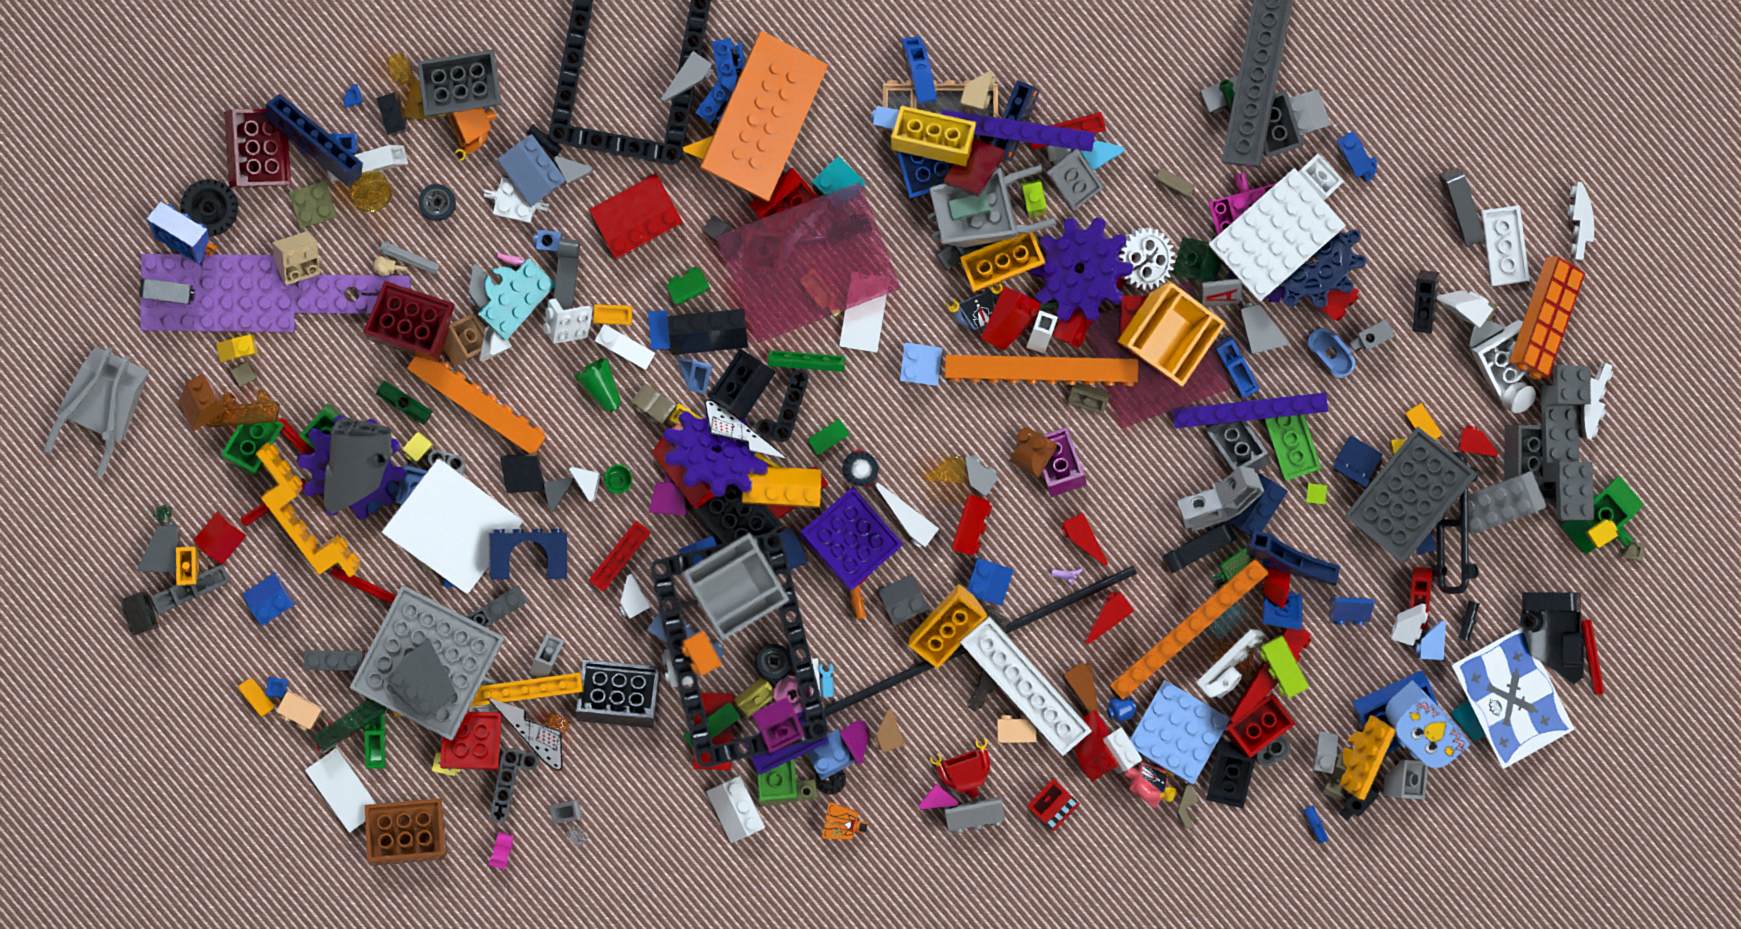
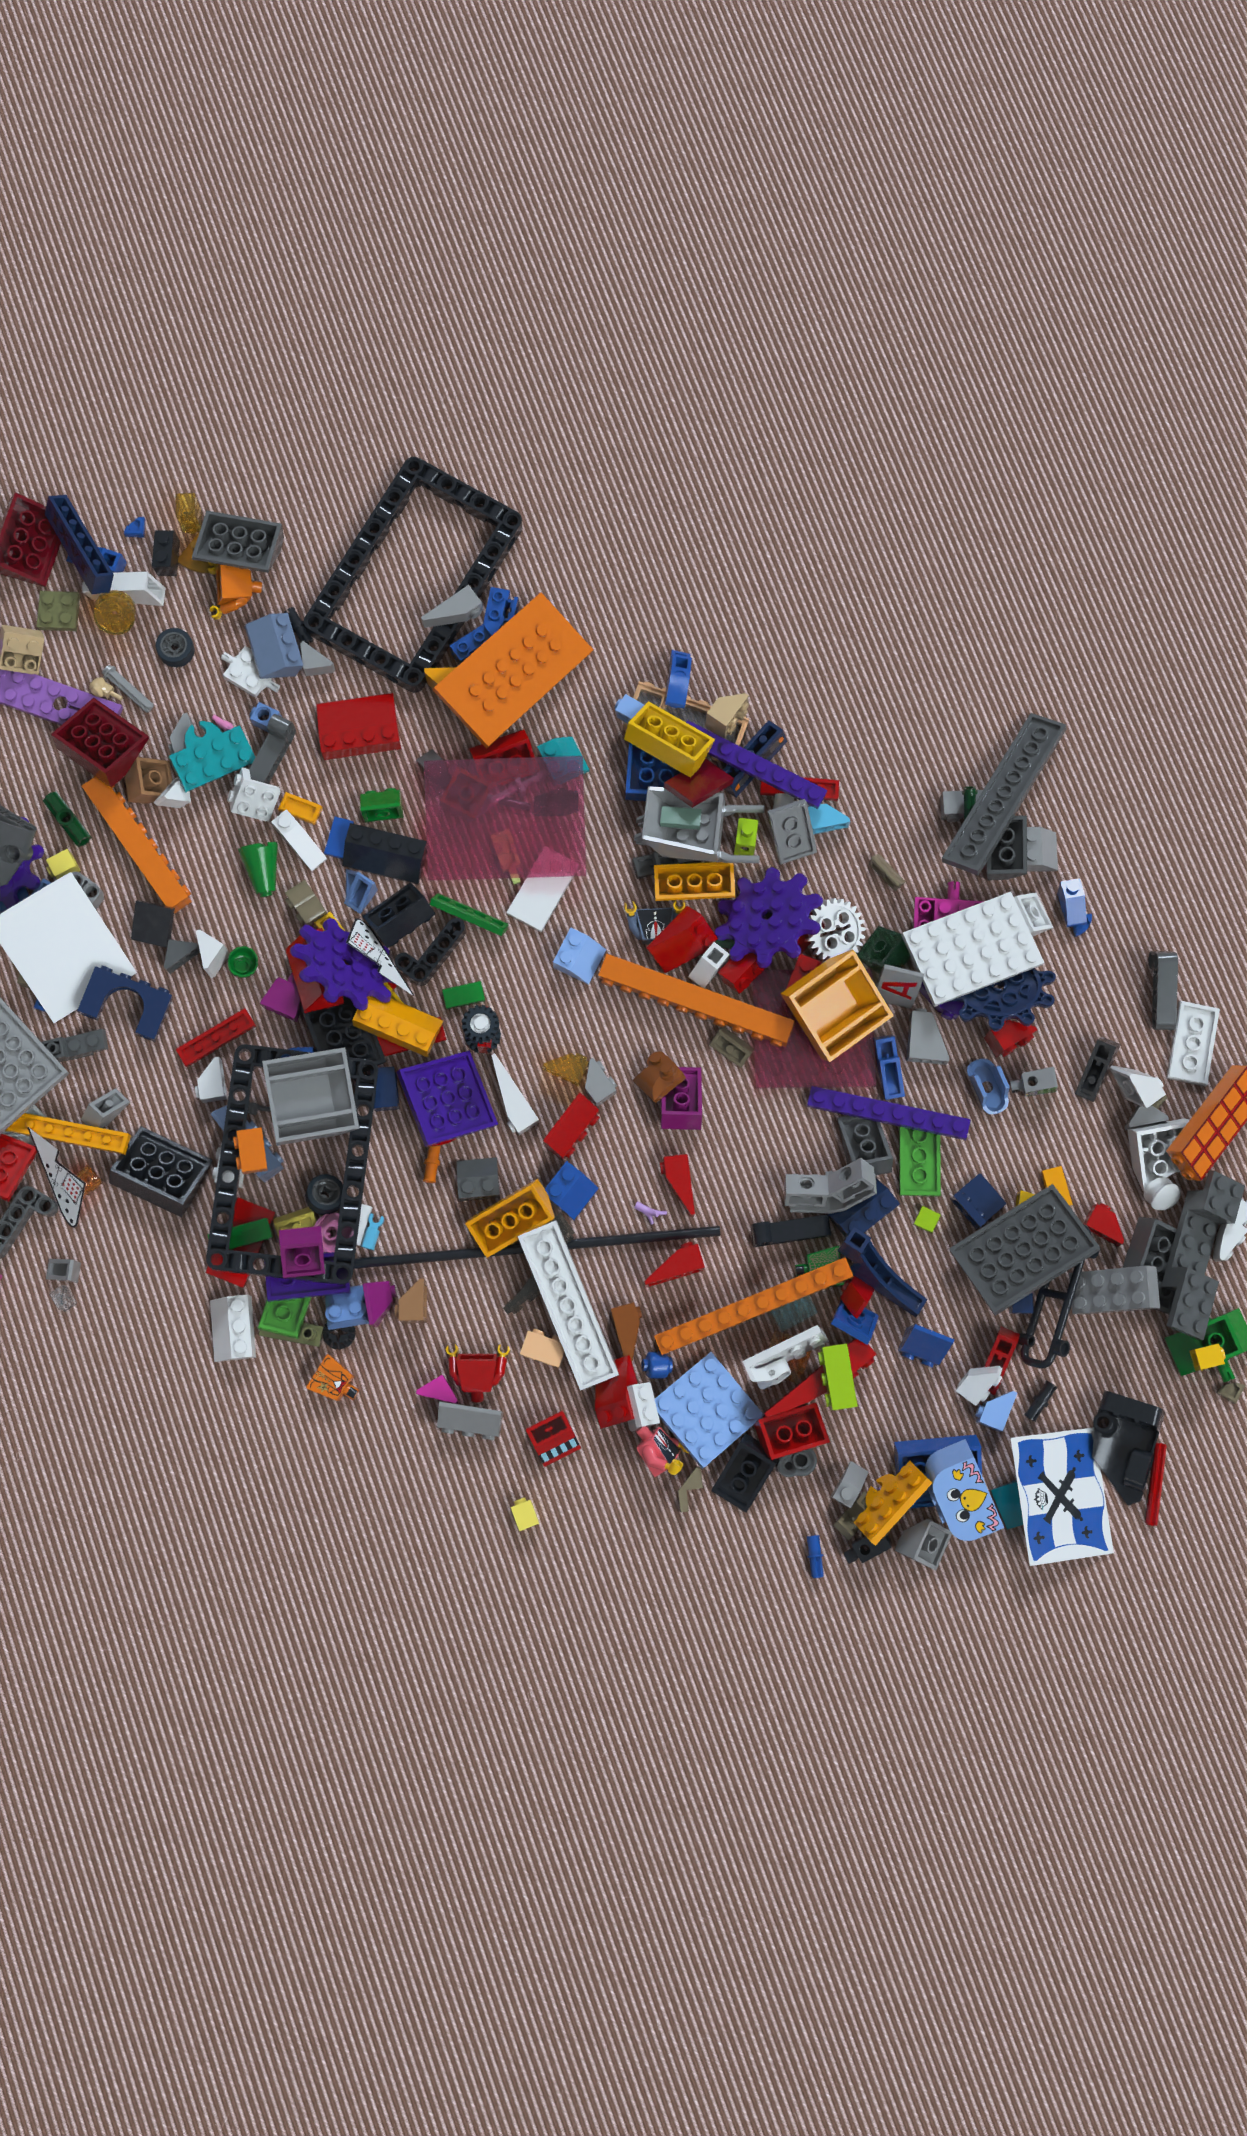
camera: 20 degrees right, 10 degrees down
(1051, 877) = (524, 1514): none -> light yellow brick

